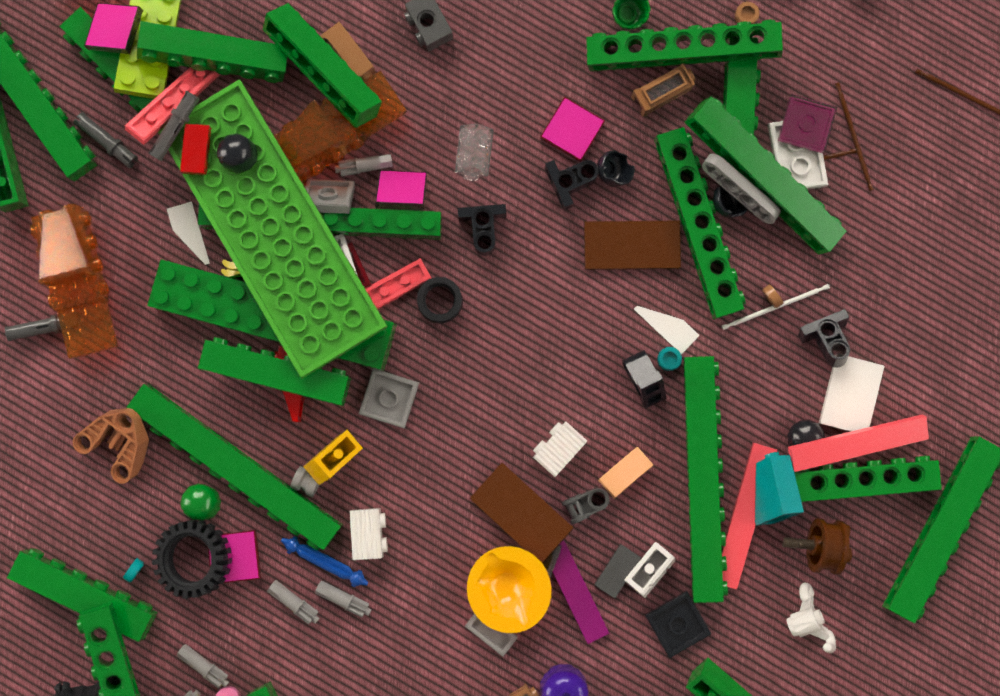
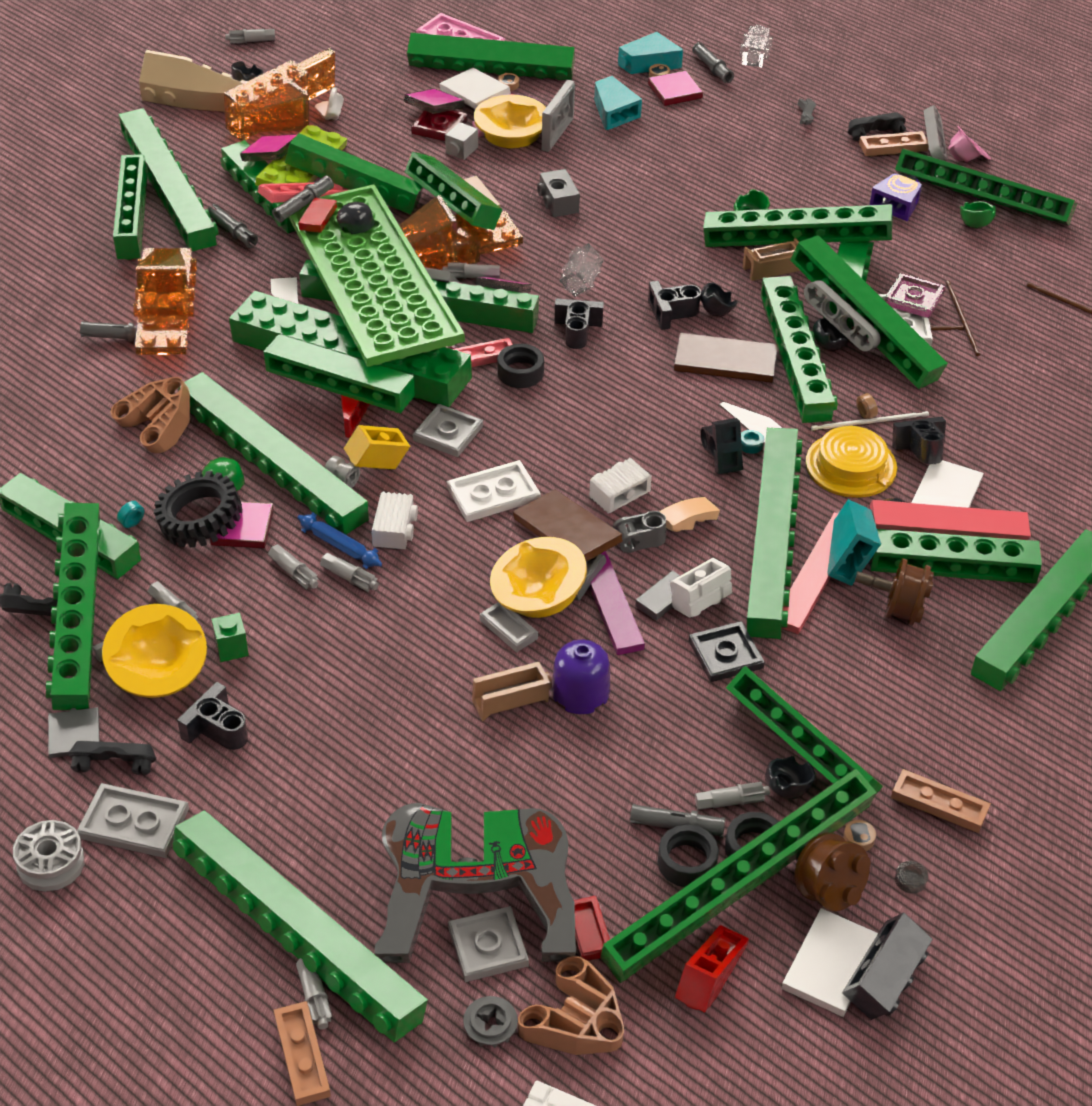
camera: 10 degrees right, 40 degrees down
(446, 470) = (493, 490): none -> white tile
(572, 129) = (680, 272): dark pink tile -> none
(763, 369) = (851, 462): none -> yellow piece
(810, 620) = (881, 660): white piece -> none

